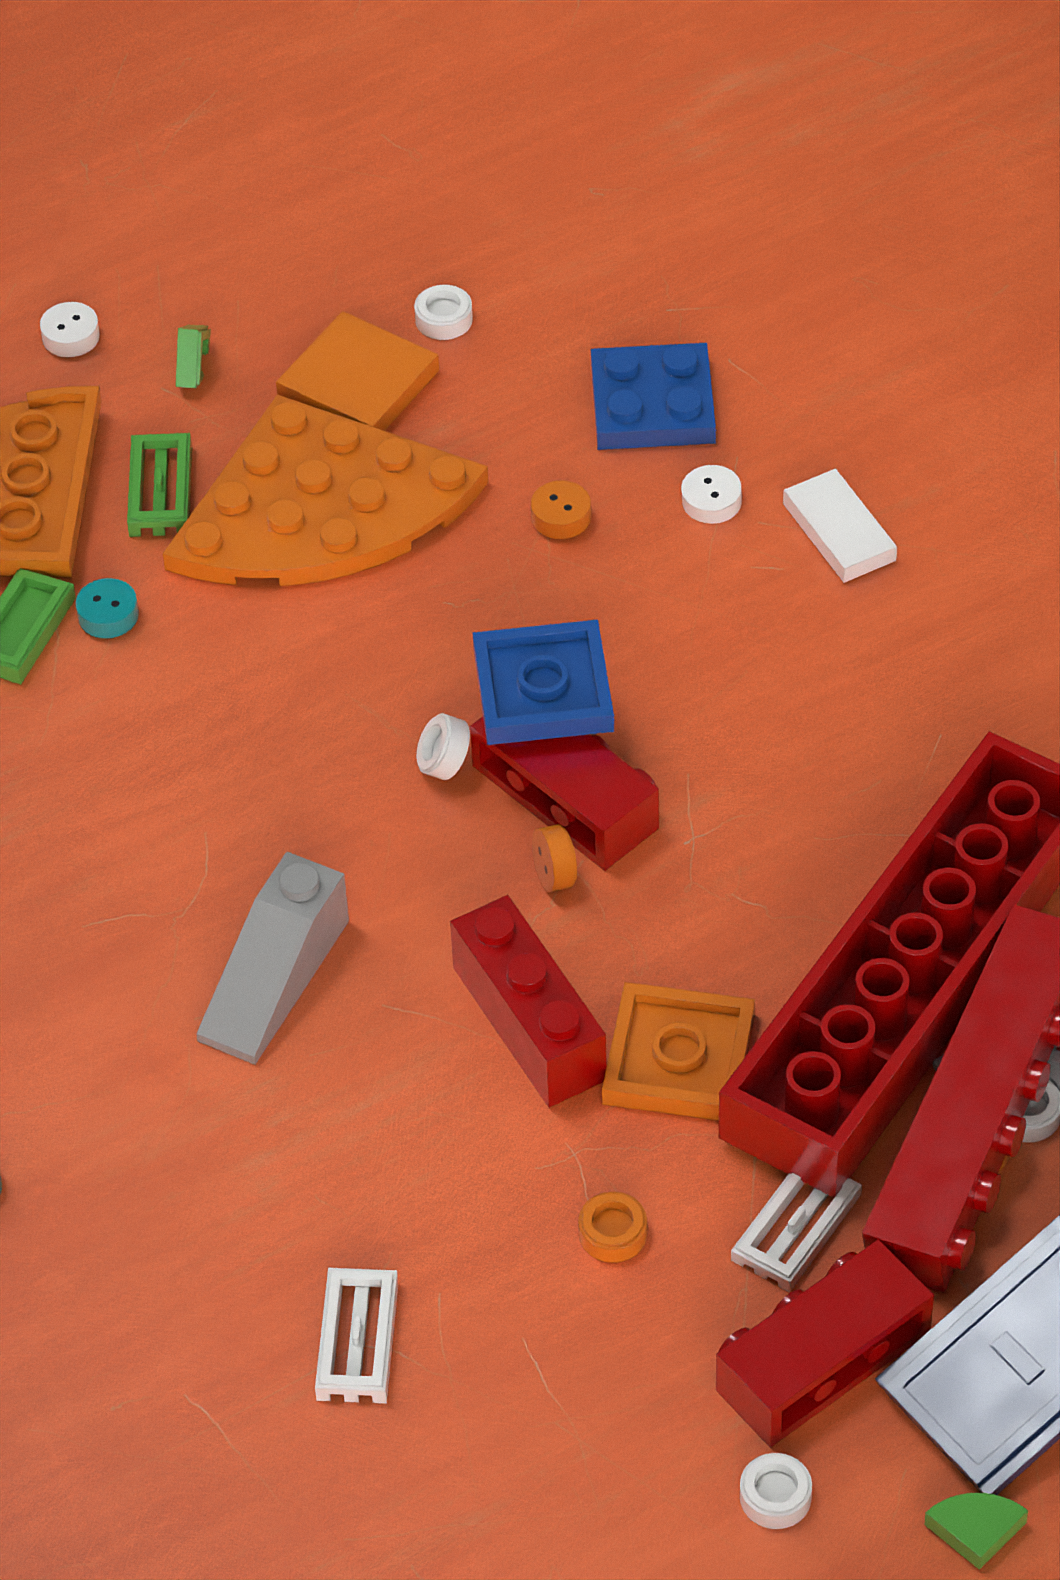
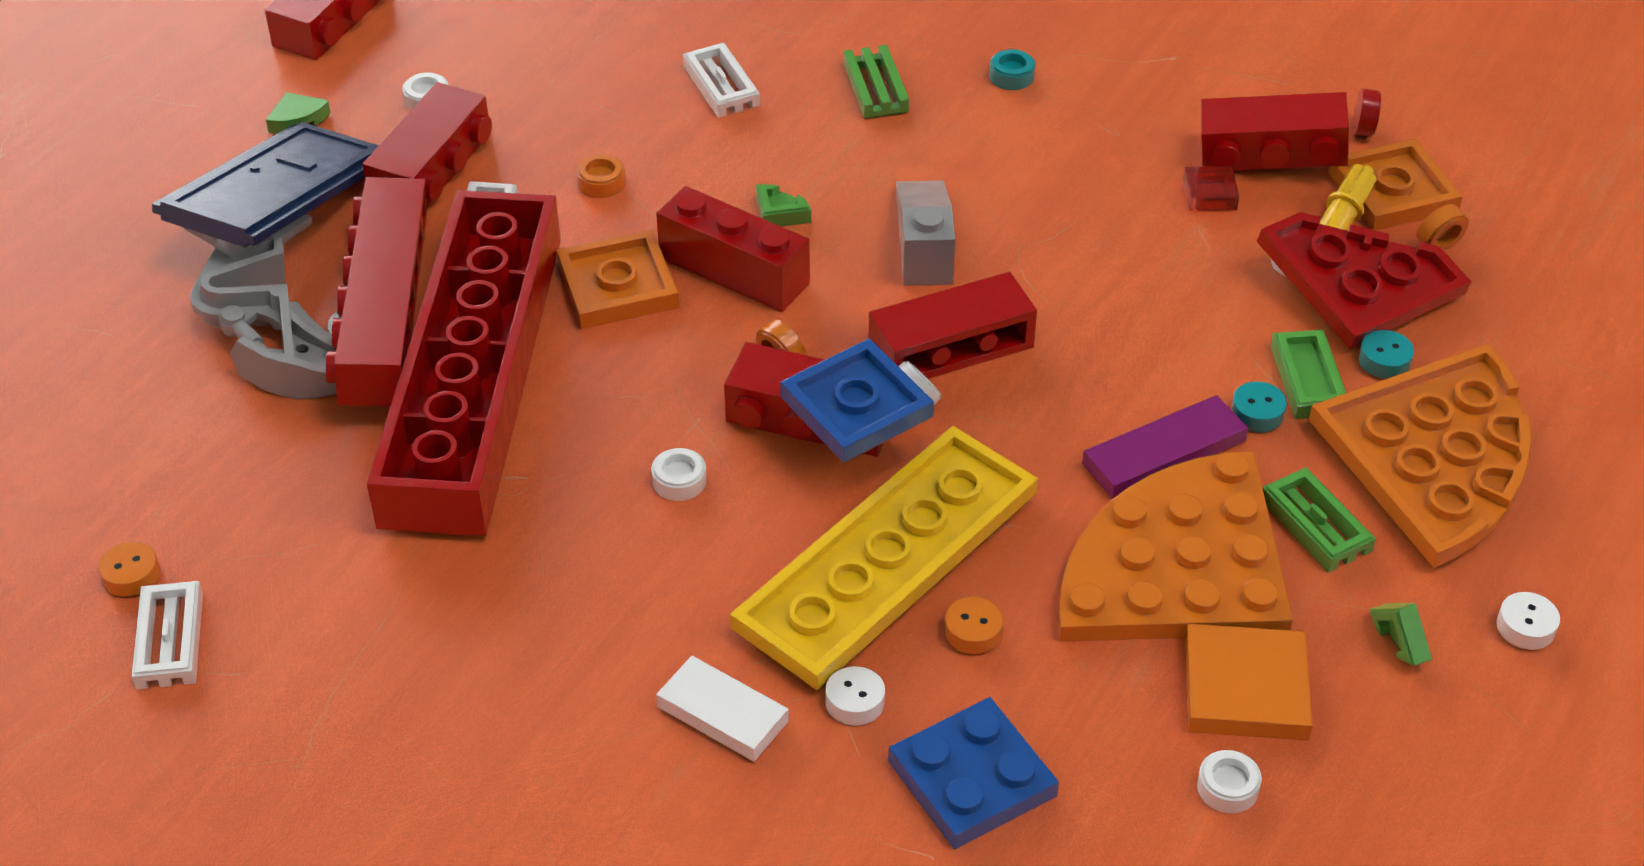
camera: 150 degrees right, 5 degrees down
(172, 1190) = (870, 62): none -> bright green tile
(236, 605) = (1171, 440): none -> magenta tile
(354, 799) = (957, 326): none -> red brick
(420, 1080) = (781, 207): none -> bright green tile
(627, 579) = (883, 556): none -> yellow plate
(748, 772) = (679, 474): none -> white tile

